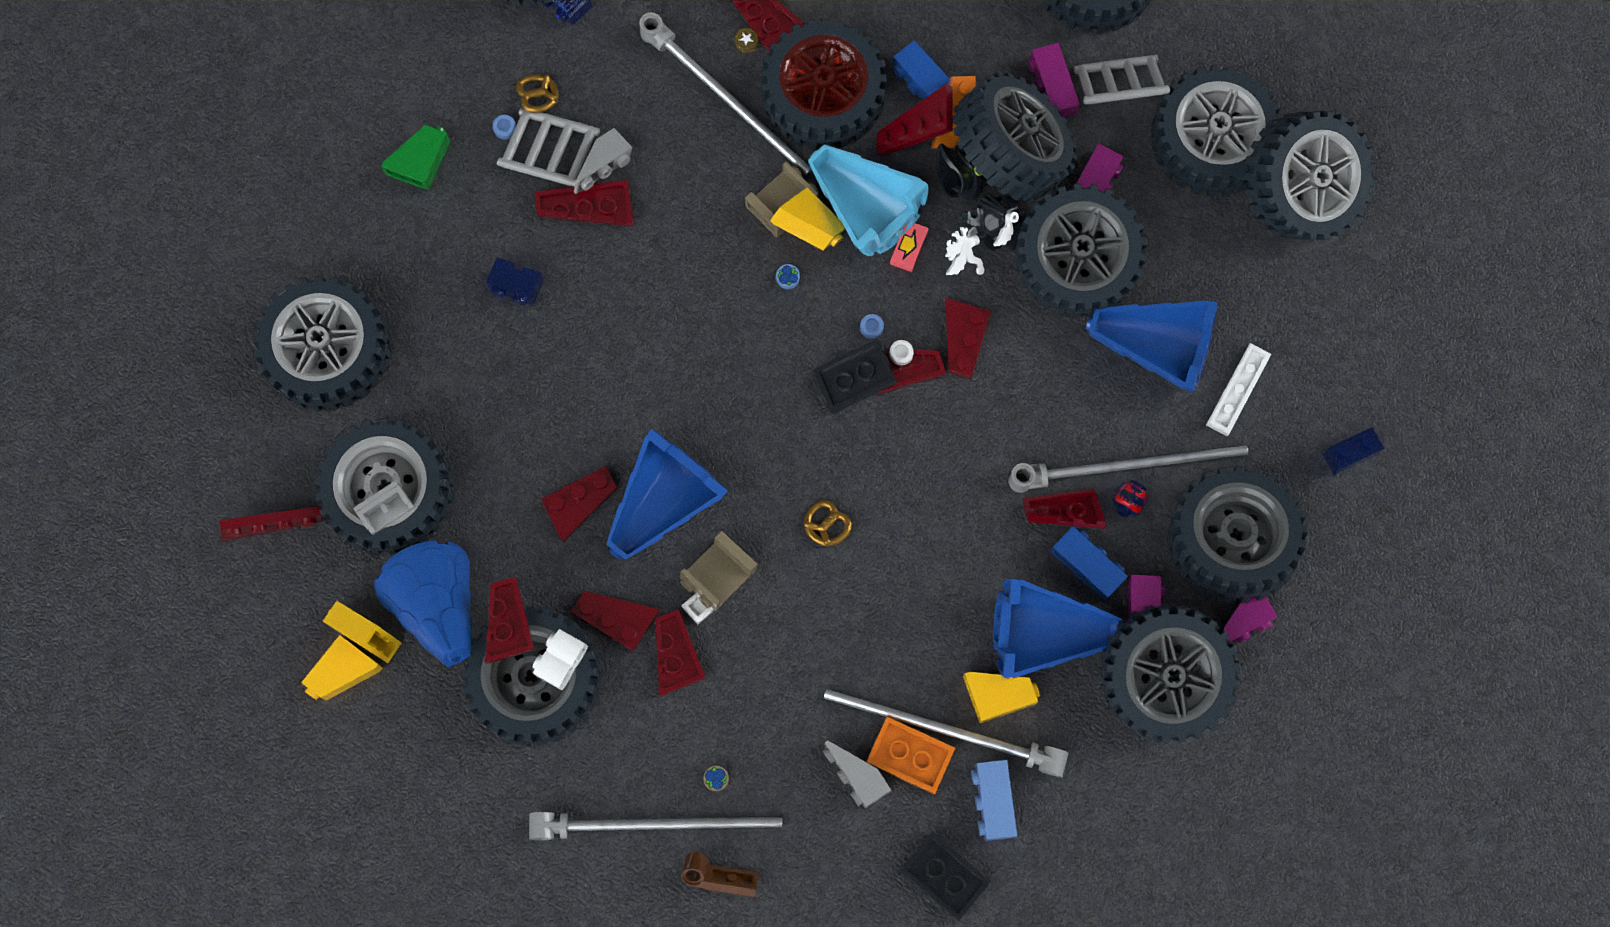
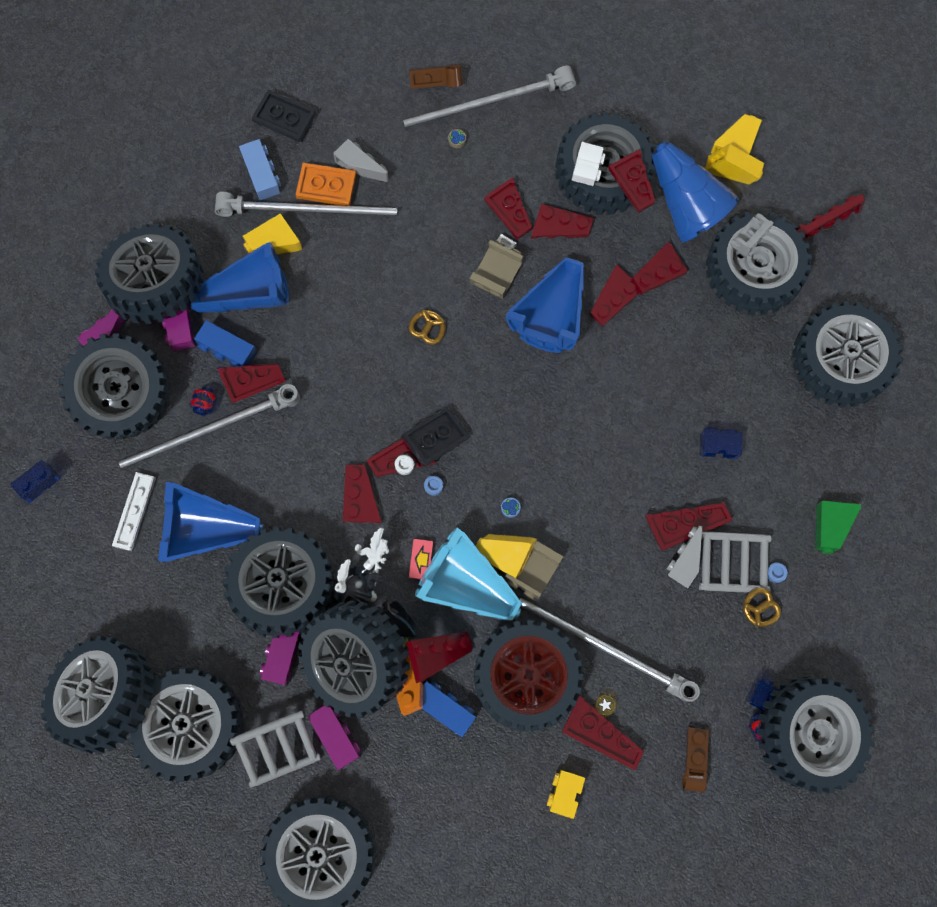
camera: 165 degrees right, 0 degrees up
(506, 518) = (659, 270): none -> dark red wing

